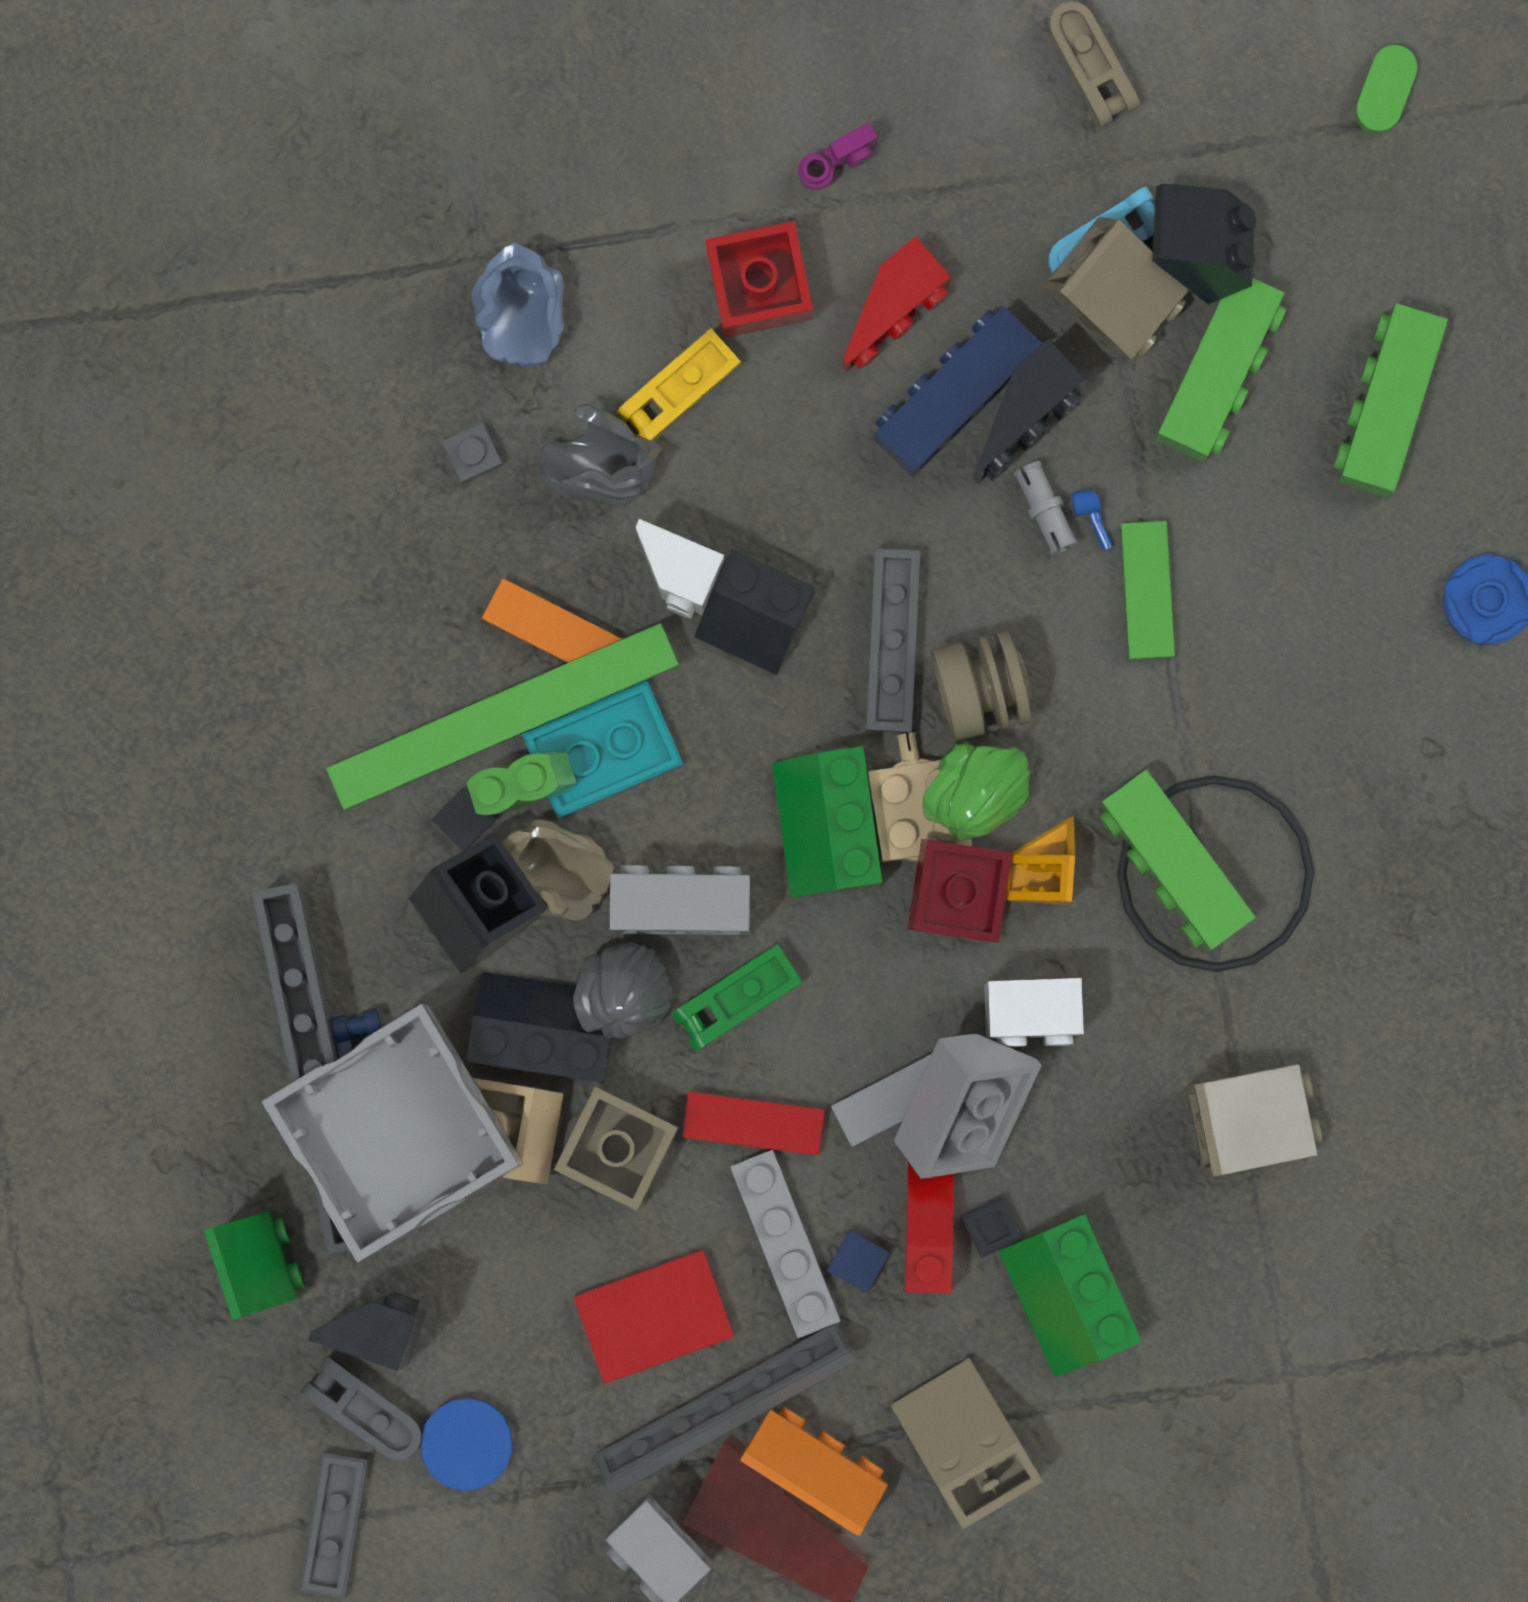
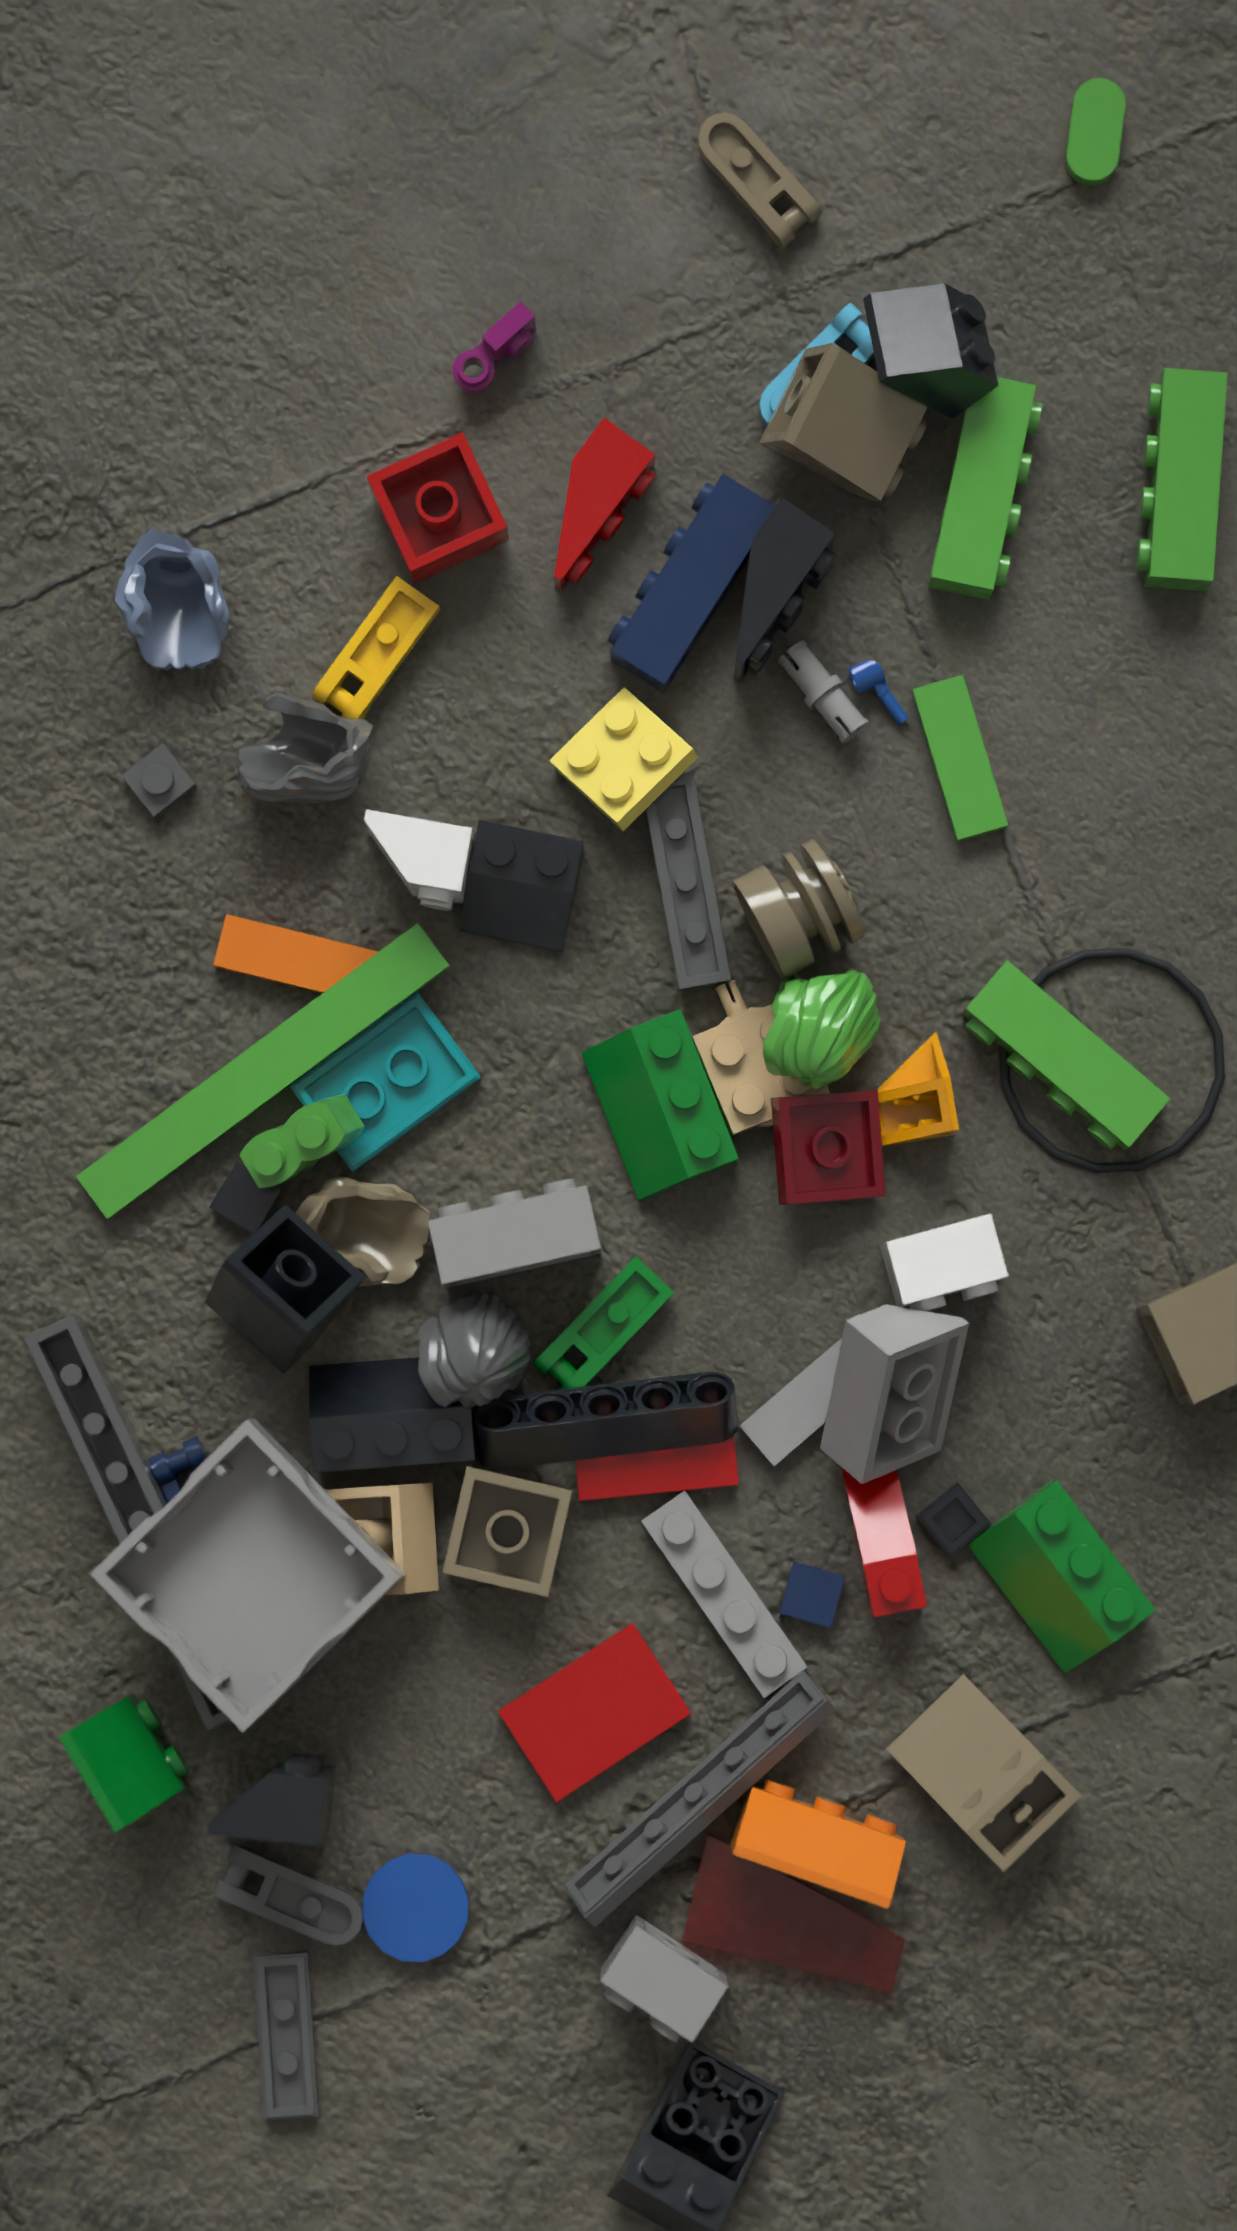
camera: 15 degrees left, 0 degrees up
(720, 1075) = (606, 1420): none -> black beam
(865, 525) = (623, 759): none -> light yellow plate

